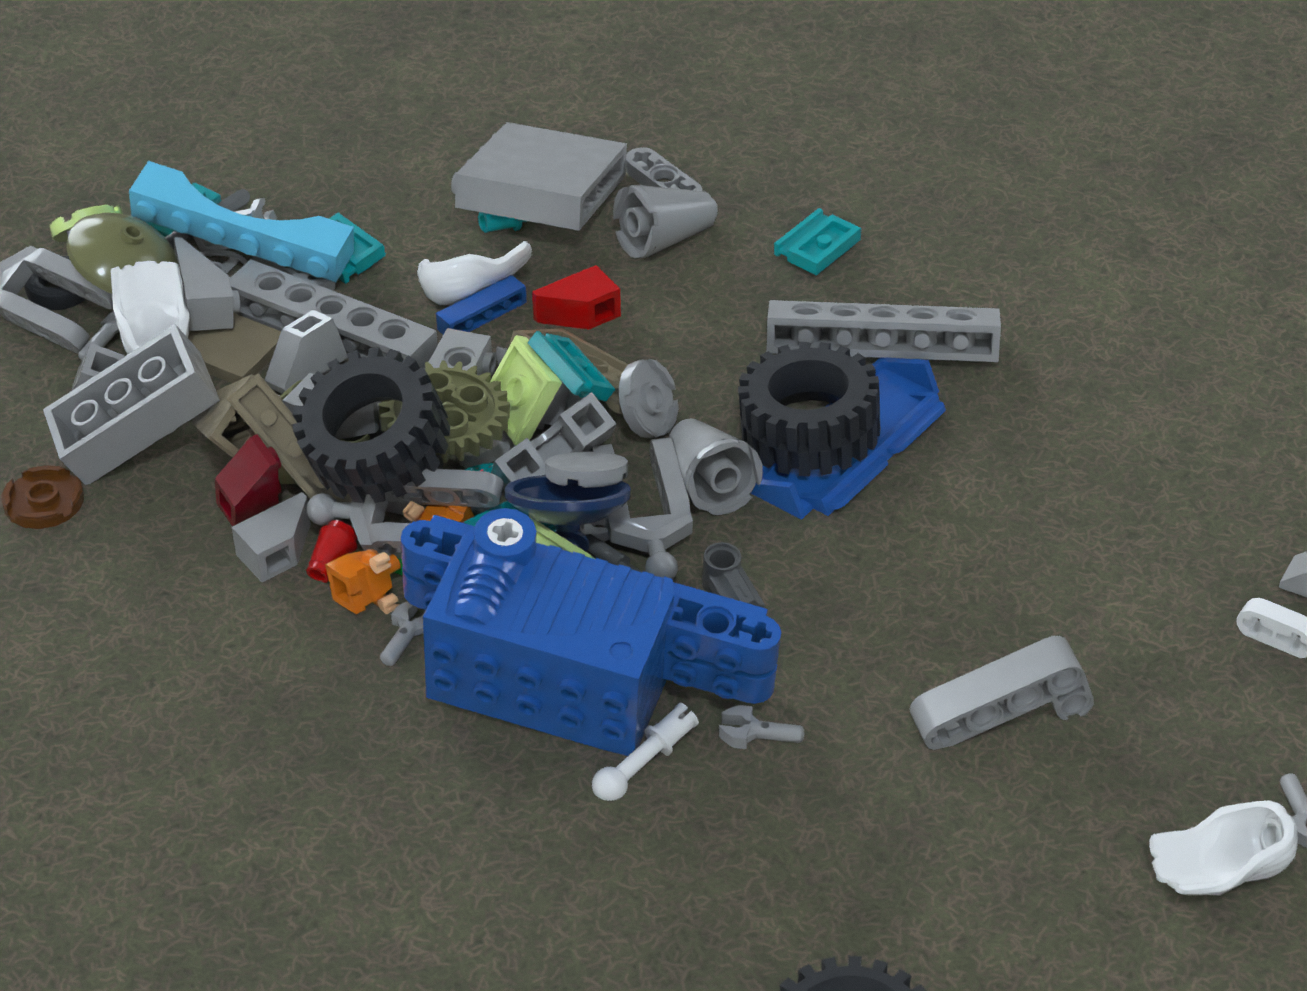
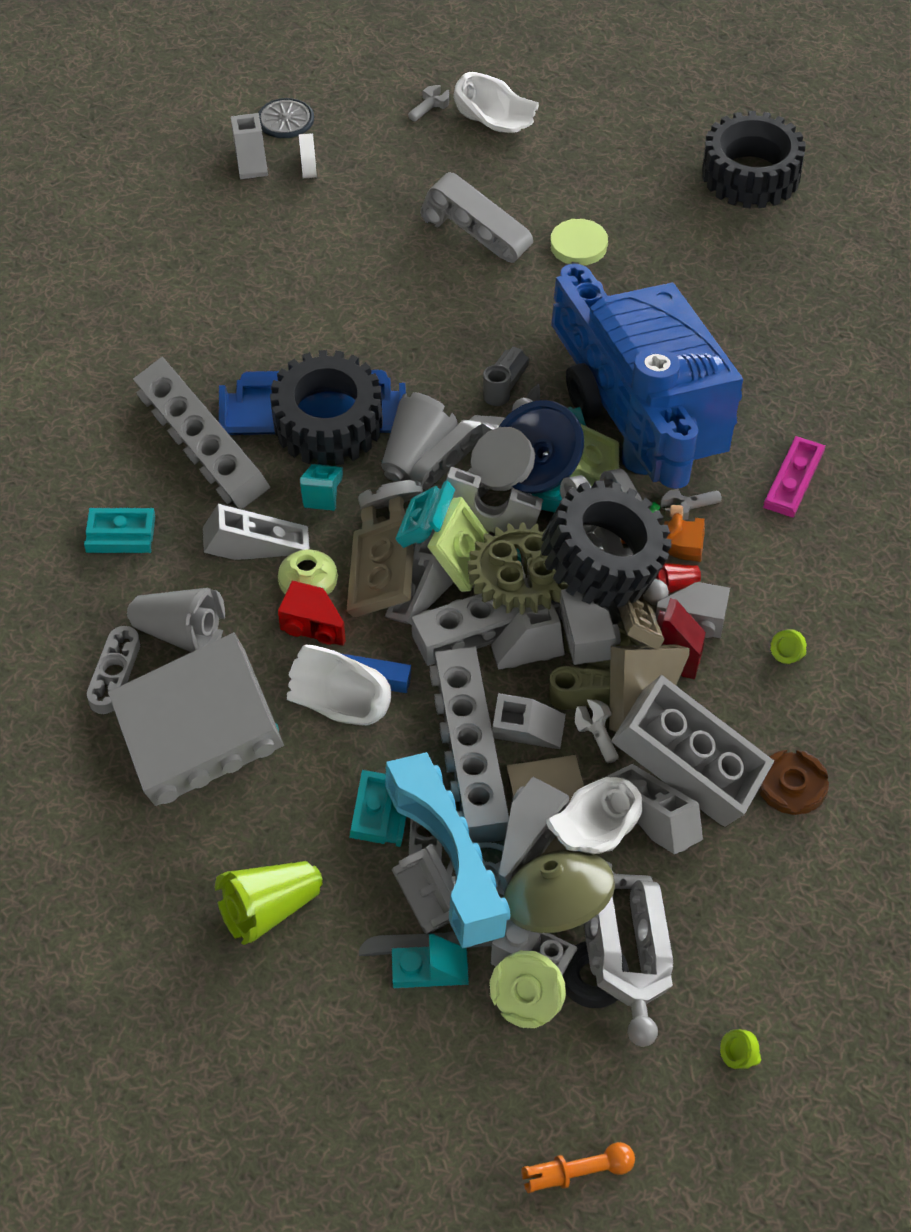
camera: 130 degrees left, 10 degrees up
(159, 574) = (788, 646): none -> lime tile
(339, 739) = (794, 476): none -> dark pink tile
(340, 140) = (265, 896): none -> lime cone
(635, 338) = (322, 575): none -> yellowish green piece
(712, 306) = (250, 535): none -> light grey slope
(721, 366) = (320, 486): none -> teal slope
(888, 793) = (579, 241): none -> yellowish green tile

